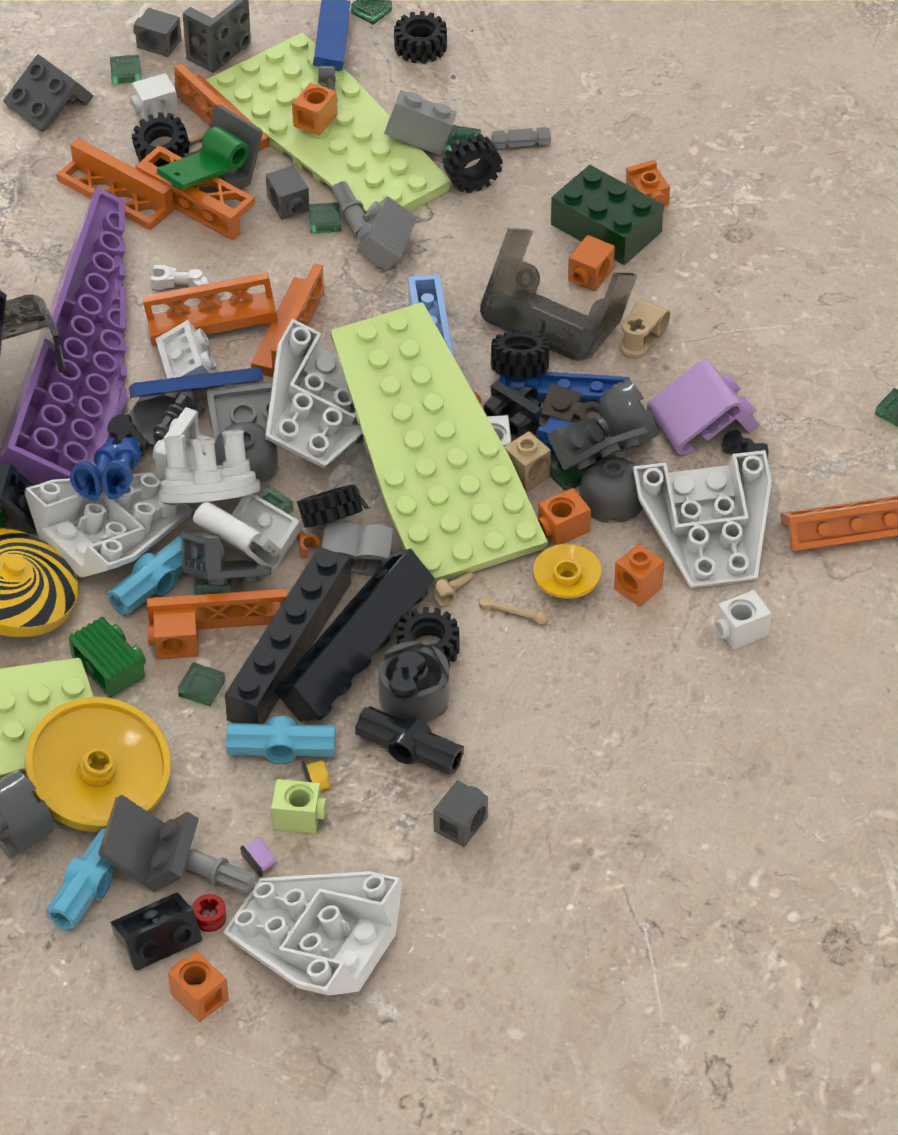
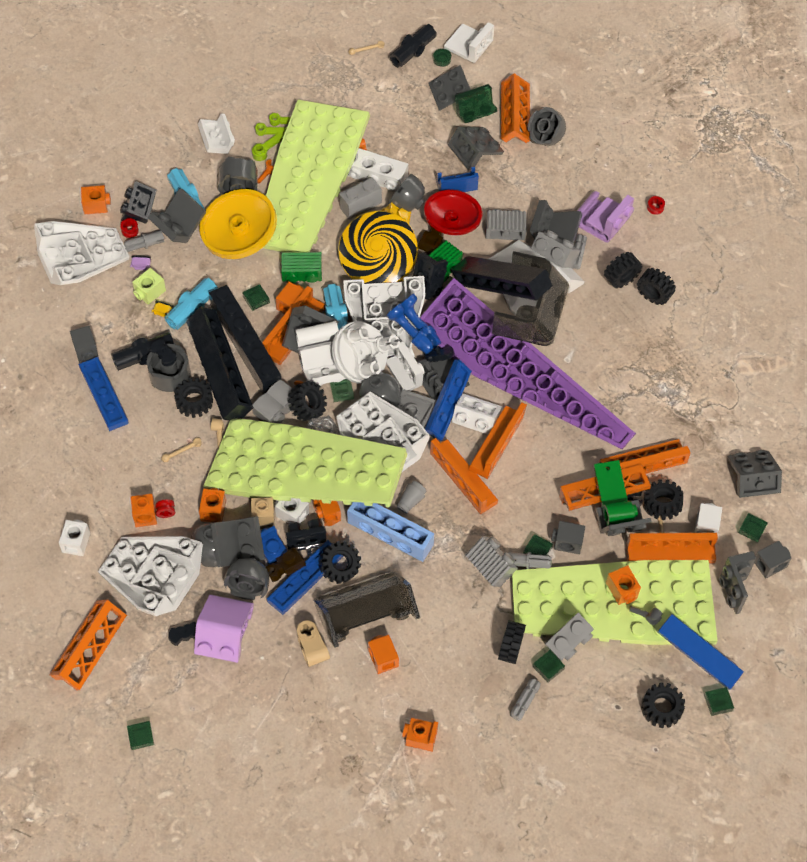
camera: 125 degrees right, 10 degrees up
(167, 277) = (514, 452): white piece -> none
(514, 745) = (103, 394): none -> blue tile
(567, 571) = (177, 474): yellow dish -> none
(607, 211) = (414, 690): dark green brick -> none
(609, 557) = (165, 508): none -> red bush

